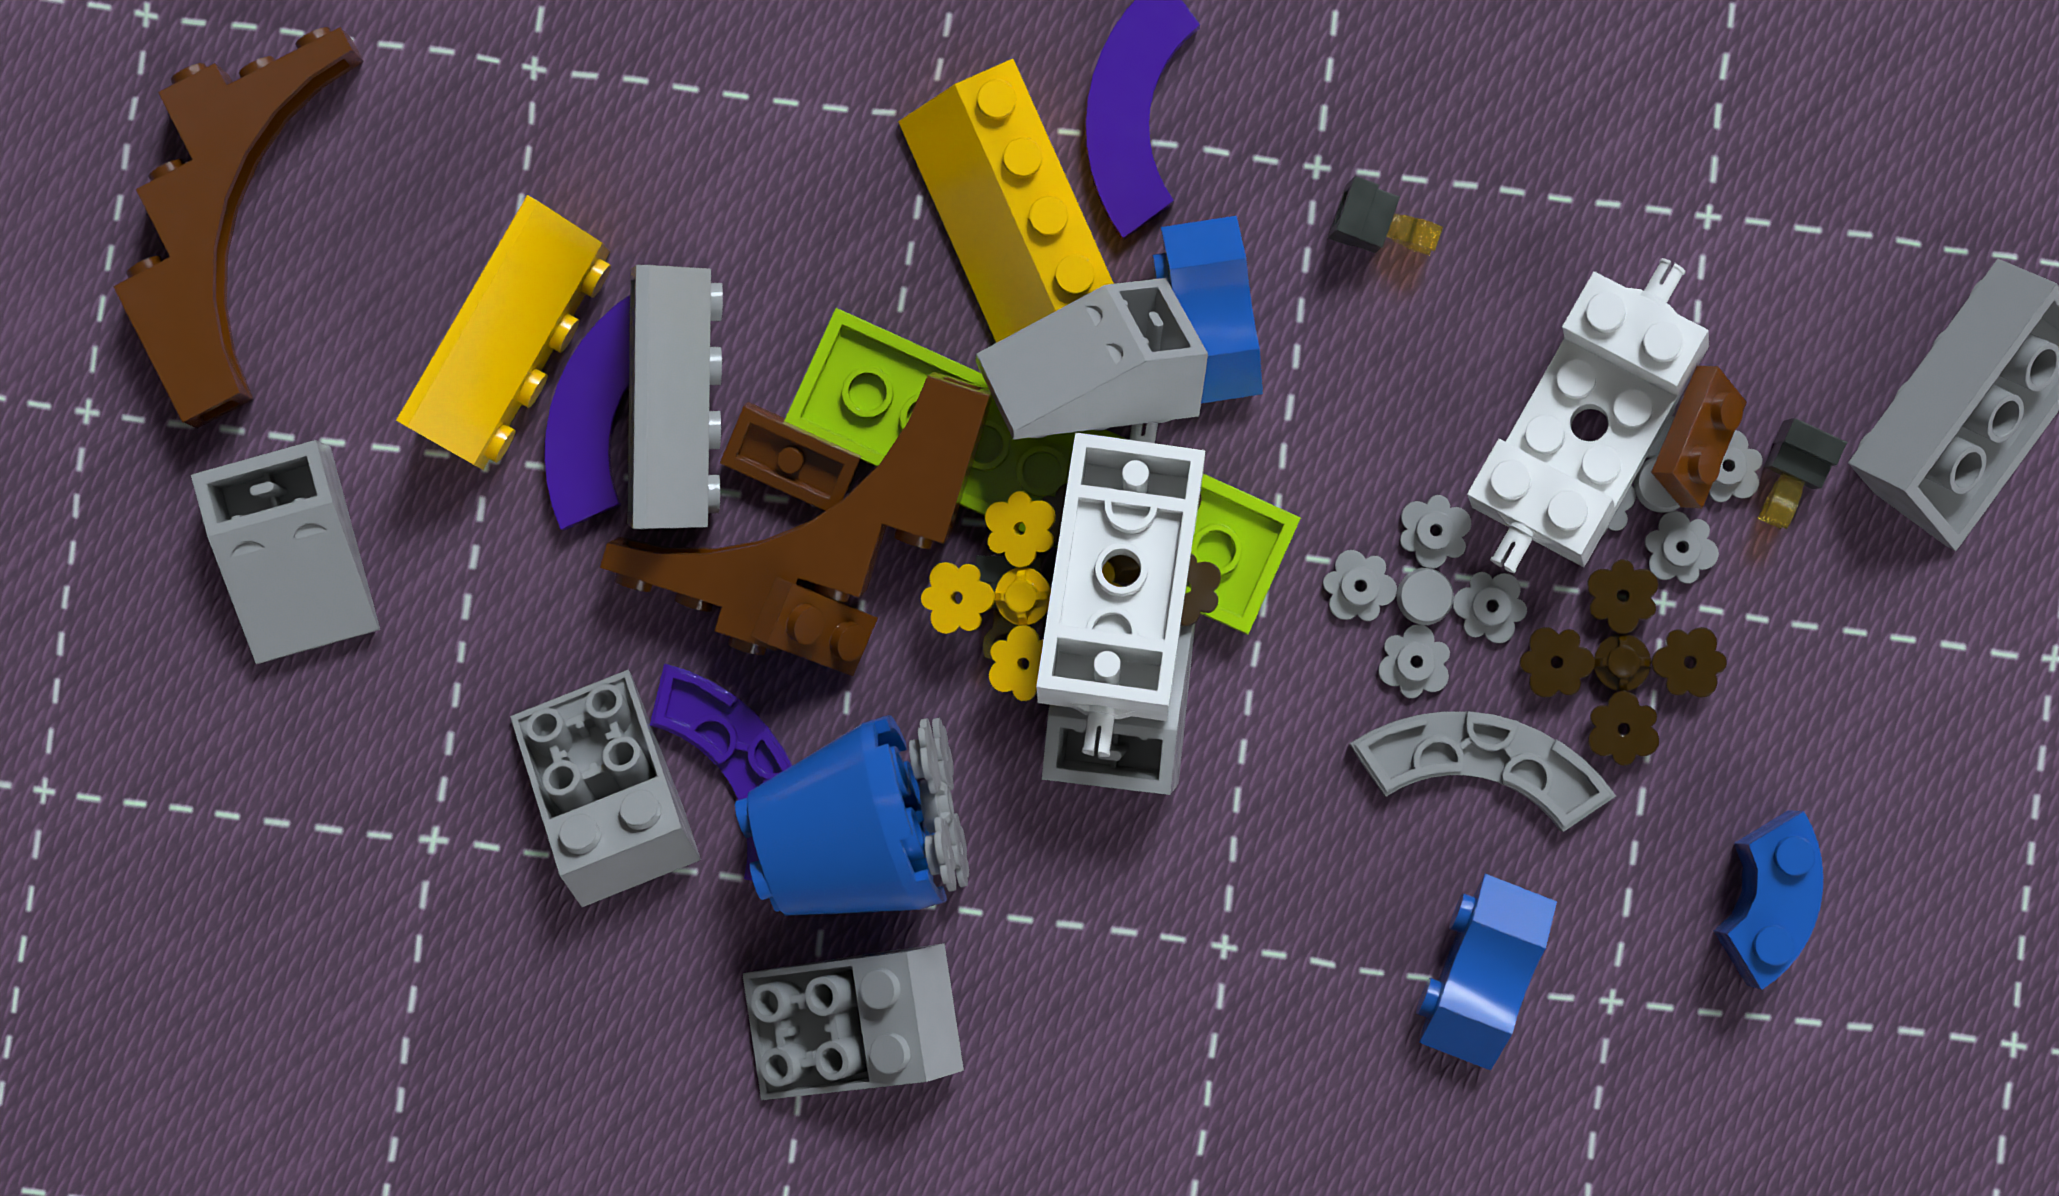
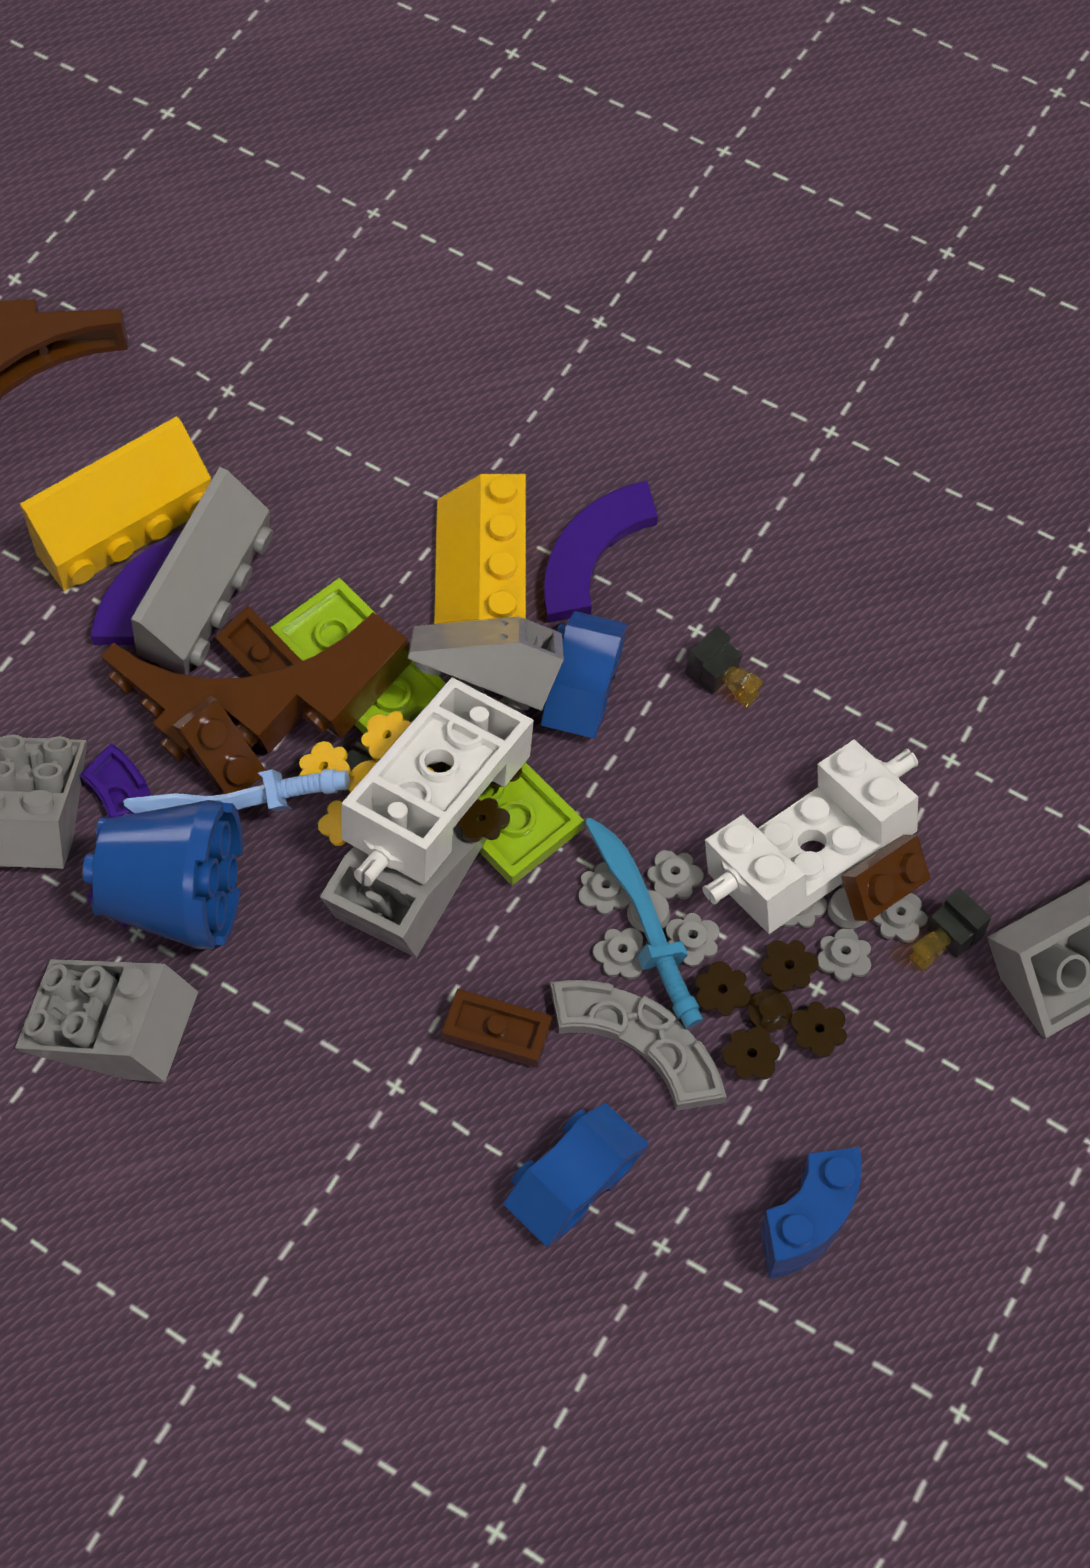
camera: 20 degrees right, 25 degrees down
(912, 661) = (272, 792): none -> light blue sword
(933, 761) = (238, 883): light grey plant -> none
(1314, 830) = (497, 1027): none -> reddish brown plate
(1385, 568) = (658, 951): none -> dark azure sword

